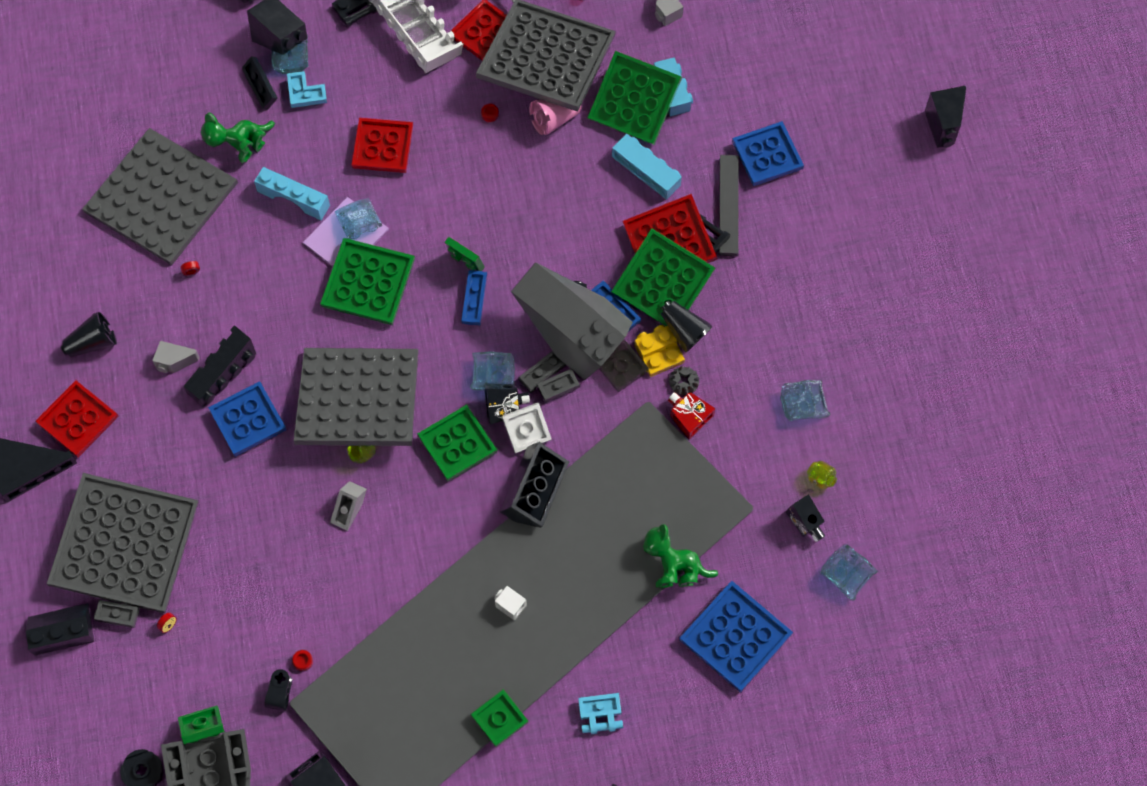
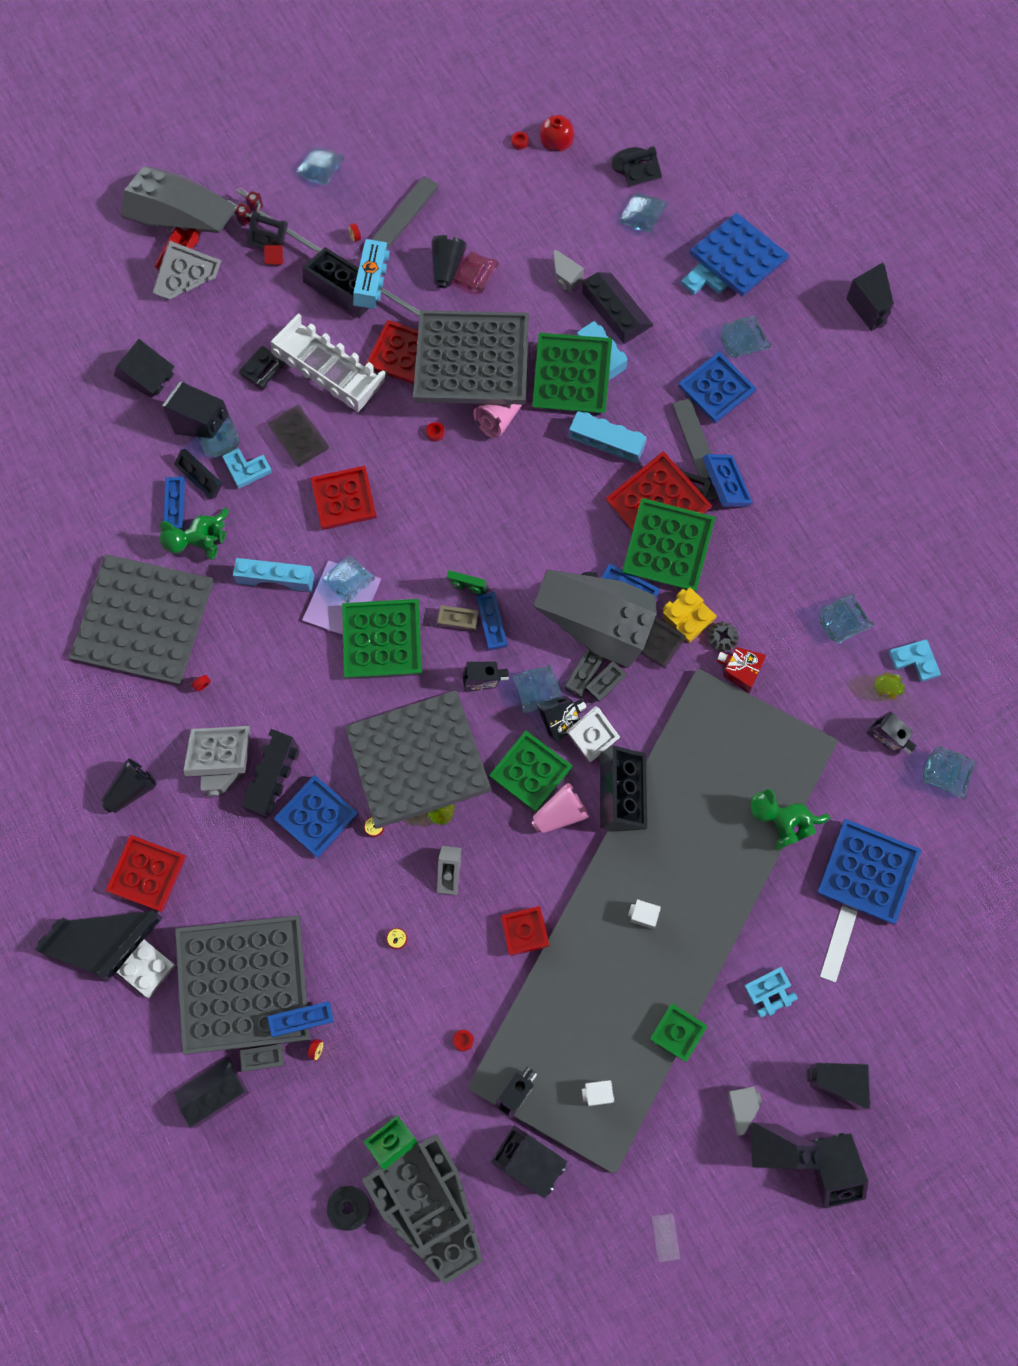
camera: 15 degrees left, 5 degrees up
(45, 502) = (146, 968): none -> white plate
(163, 589) = (300, 1019): none -> blue plate
(180, 331) = (217, 751): none -> light grey plate
(229, 101) = (174, 501): none -> blue plate
(278, 550) = (396, 938): none -> light yellow tile
(278, 694) = (453, 1084): black piece -> none
(294, 450) = (370, 828): none -> light yellow tile
(329, 719) = (511, 1098): none -> black torso
(363, 77) = (298, 435): none -> clear smoke plate
(395, 582) = (525, 931): none -> red plate
(404, 746) = (598, 1093): none -> white brick
(444, 285) = (457, 618): none -> dark tan plate
(446, 343) = (482, 676): none -> black torso
(470, 485) = (560, 811): none -> bright pink cone
(682, 692) = (838, 944): none -> white sticker
(684, 324) = (707, 583): black cone -> none
(702, 50) = (615, 306): none -> black slope
(742, 240) = (727, 480): none -> blue plate
(797, 47) = (701, 276): none -> medium azure plate
(811, 115) = (743, 337): none -> clear light blue slope
(836, 39) = (739, 254): none -> blue plate
(862, 456) = (920, 656): none -> medium azure plate

